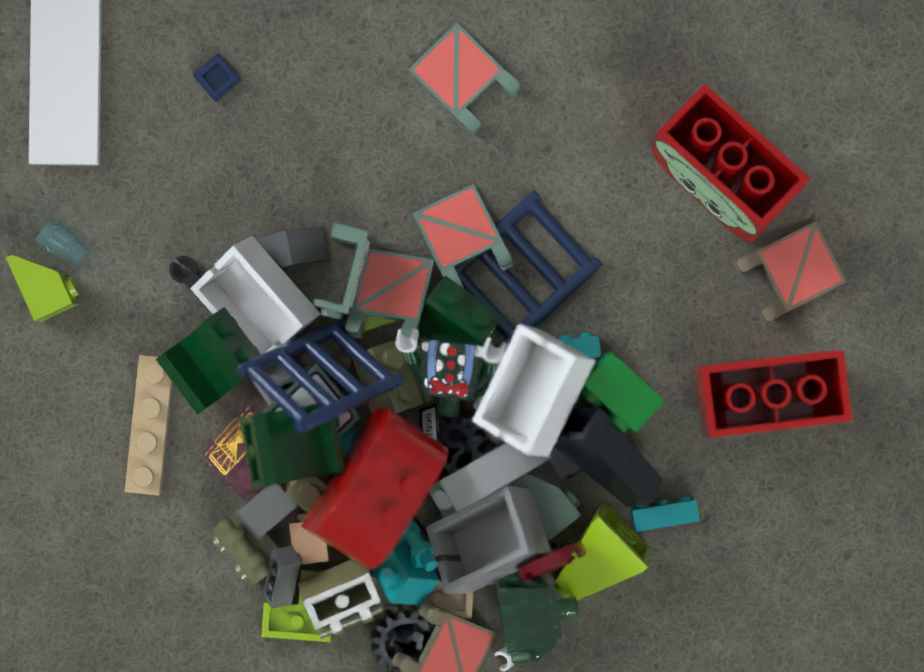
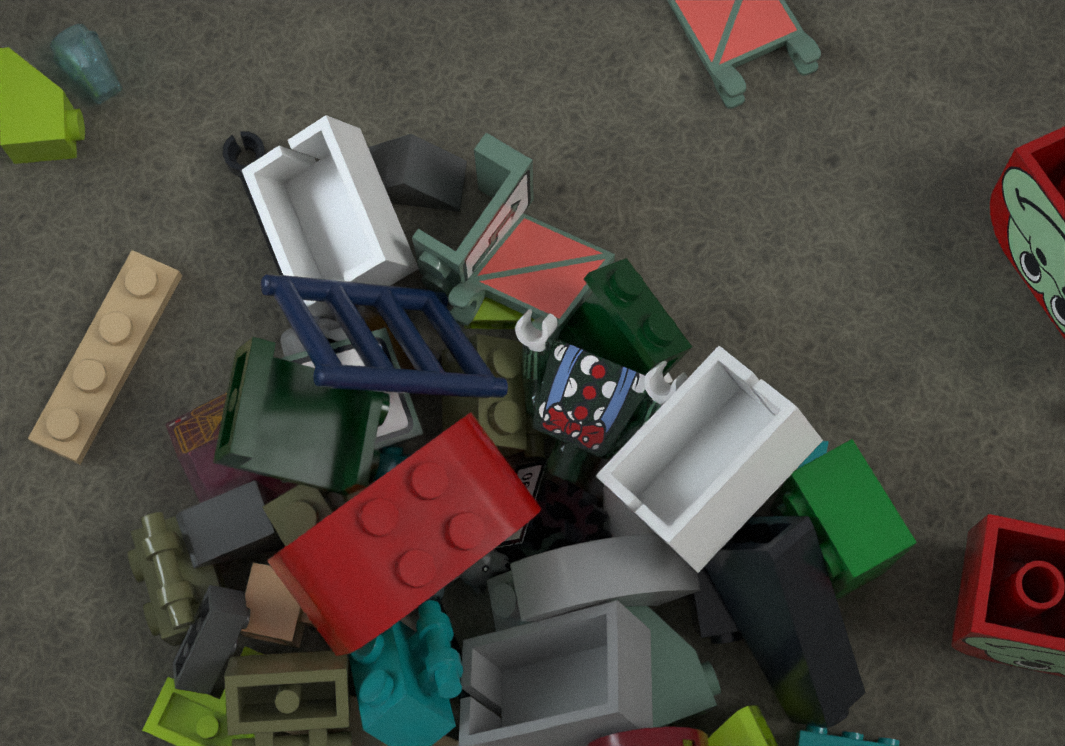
camera: 20 degrees right, 15 degrees down
(207, 360) = (217, 291): dark green panel -> none
(461, 230) = (670, 228): coral flag -> none
(562, 288) = (737, 248): dark blue bar -> none

